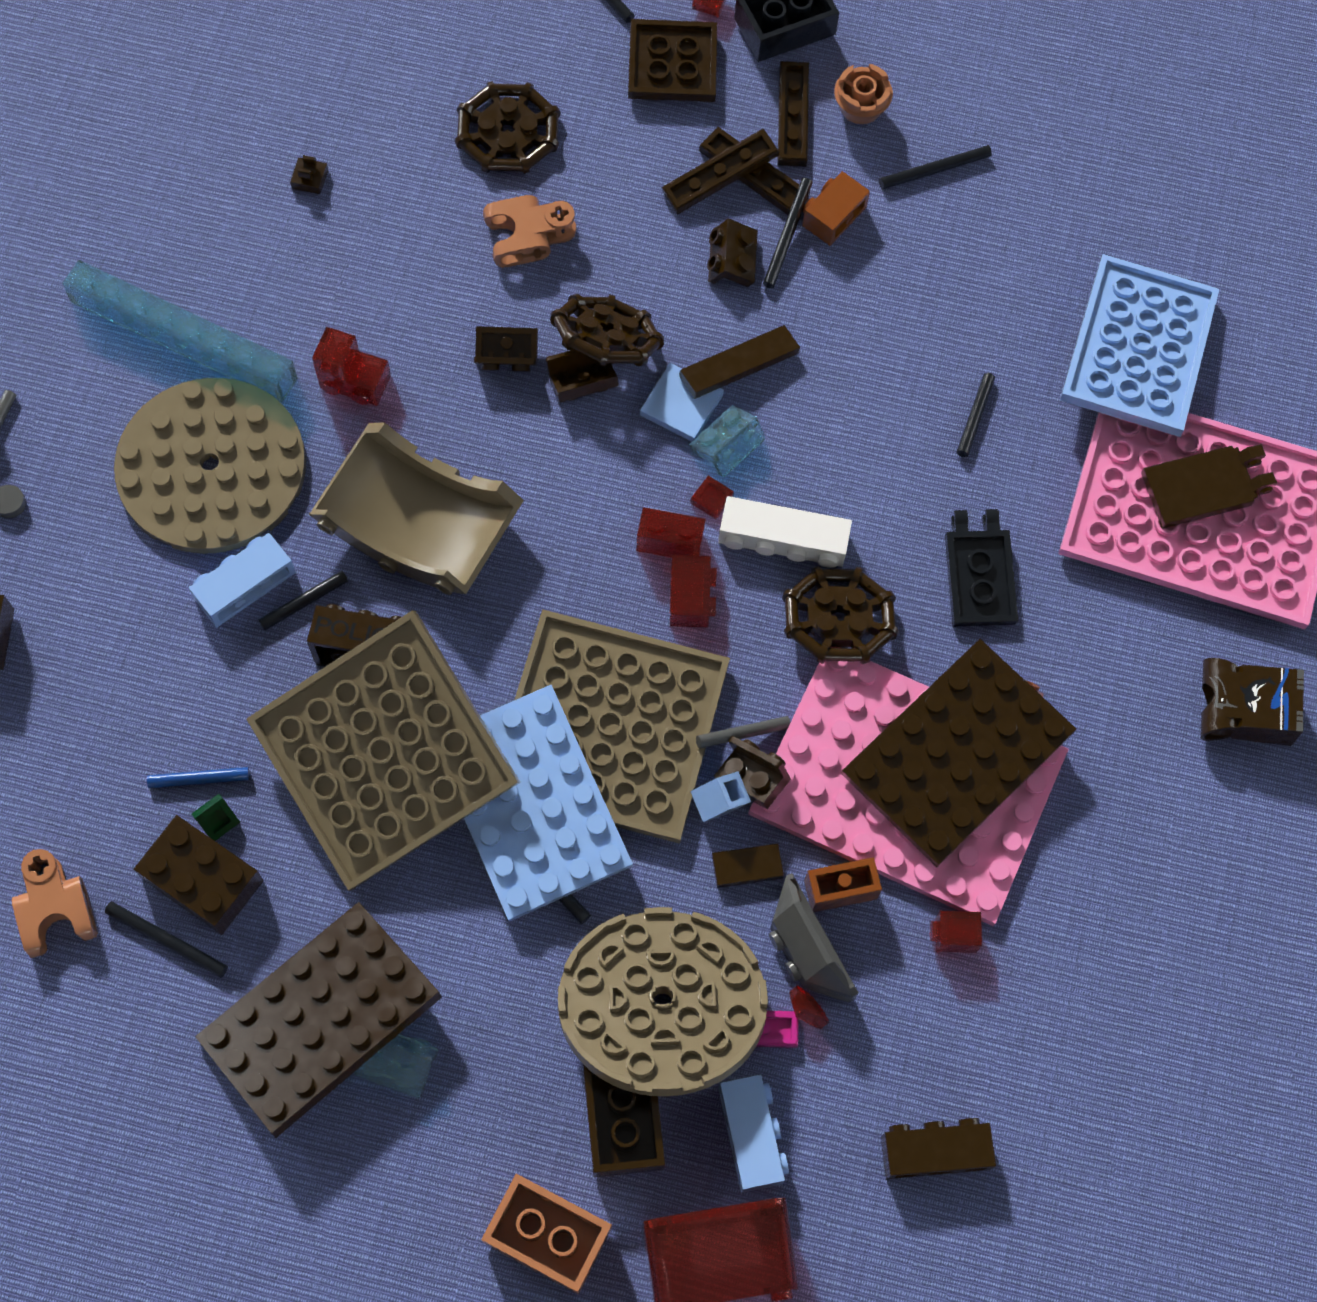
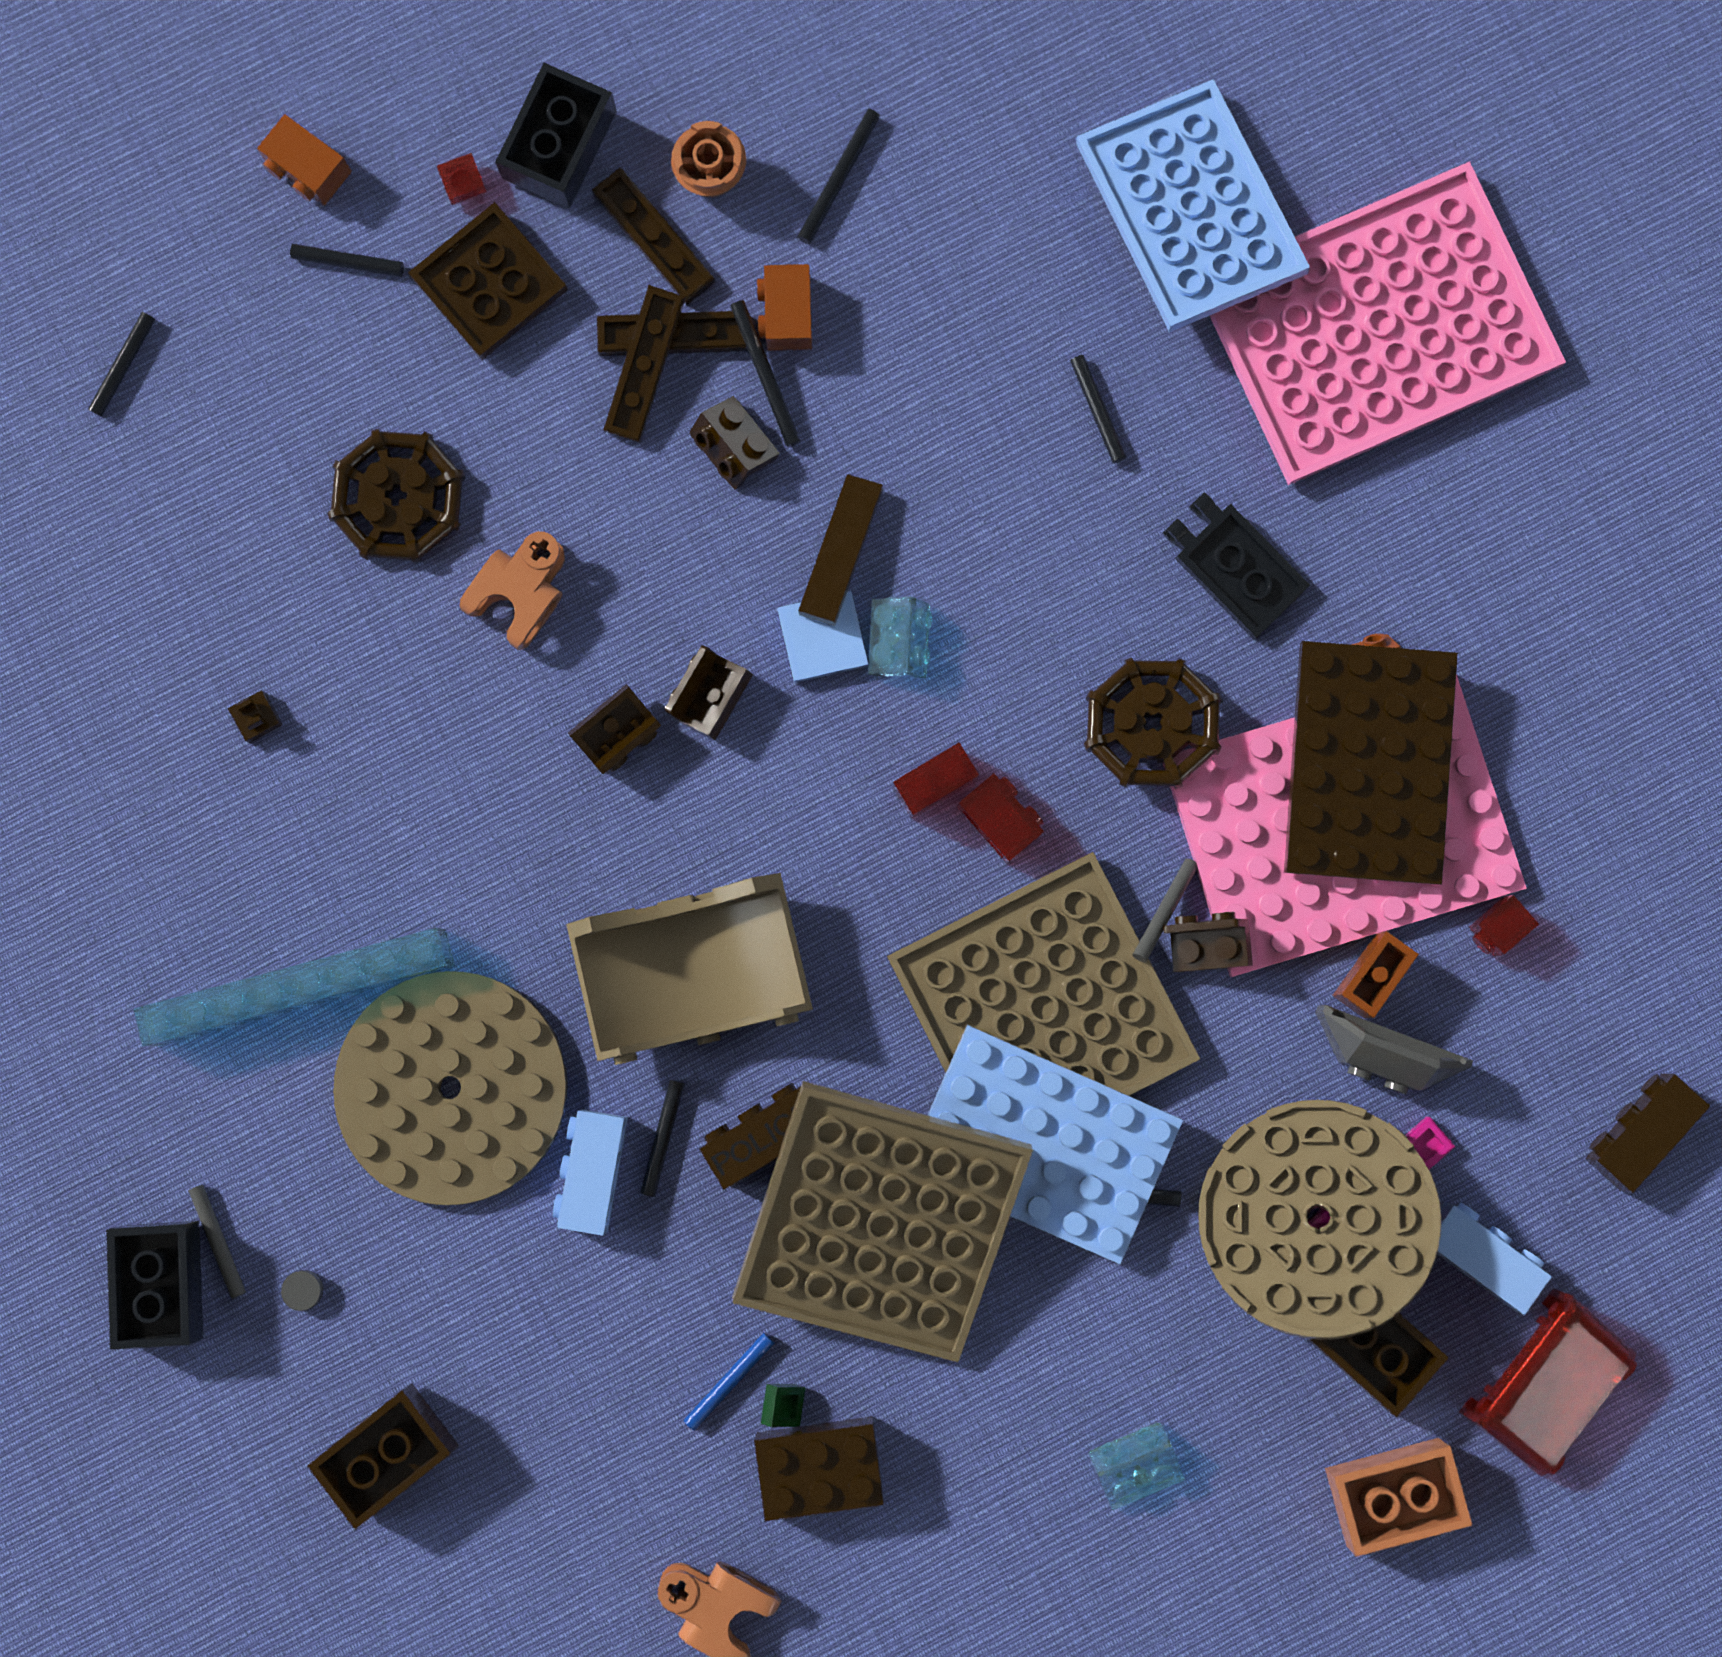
camera: 35 degrees left, 15 degrees up
(166, 939) = (841, 1544): black bar -> none
(317, 1018) = (1041, 1496): dark brown plate -> none
(347, 370) = (493, 884): clear red brick -> none
(607, 326) = (701, 657): dark brown plate -> none
(711, 497) = (934, 706): clear red tile -> none
(720, 796) = (1202, 990): light blue brick -> none
(747, 865) = (1273, 1026): dark brown tile -> none
(784, 532) = (1032, 685): white brick -> none
(807, 1008) = (1434, 1106): clear red tile -> none
(1206, 484) = (1367, 303): dark brown tile -> none
(1252, 702) = (1577, 484): dark brown piece -> none

